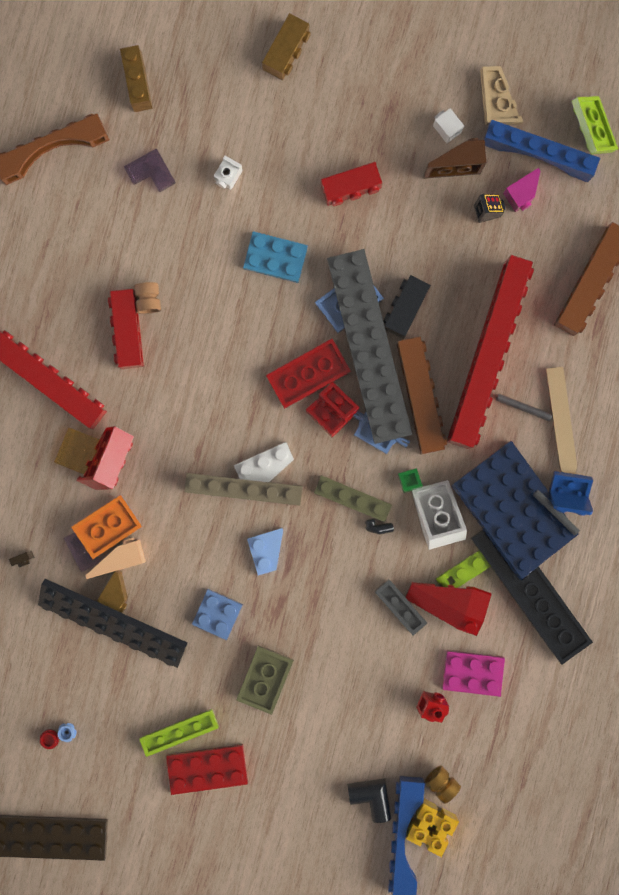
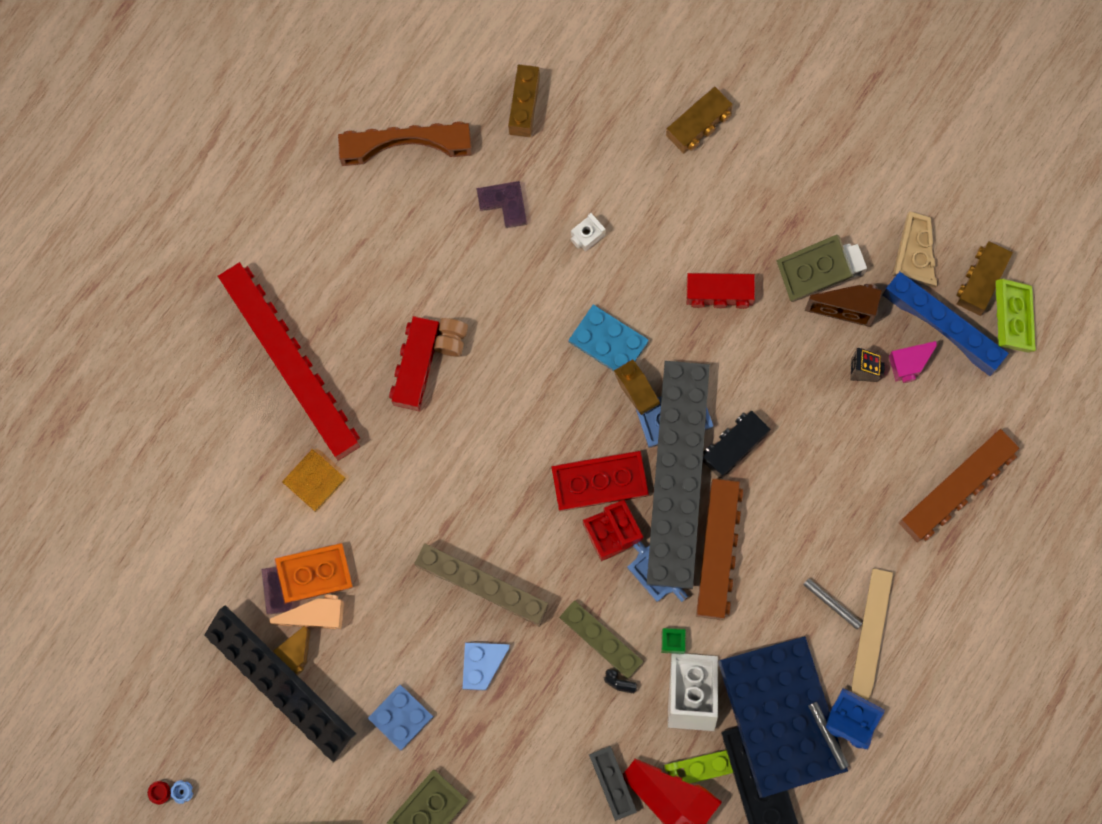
camera: 25 degrees right, 10 degrees down
(22, 559) = (206, 577): dark brown plate -> none
(108, 460) = (343, 499): wedge -> none
(265, 465) = (516, 566): white wing -> none
(312, 287) = (636, 387): none -> pearl gold slope
(422, 140) = (815, 268): none -> olive plate
(490, 351) = (807, 532): red brick -> none
(558, 102) = (983, 277): none -> pearl gold brick

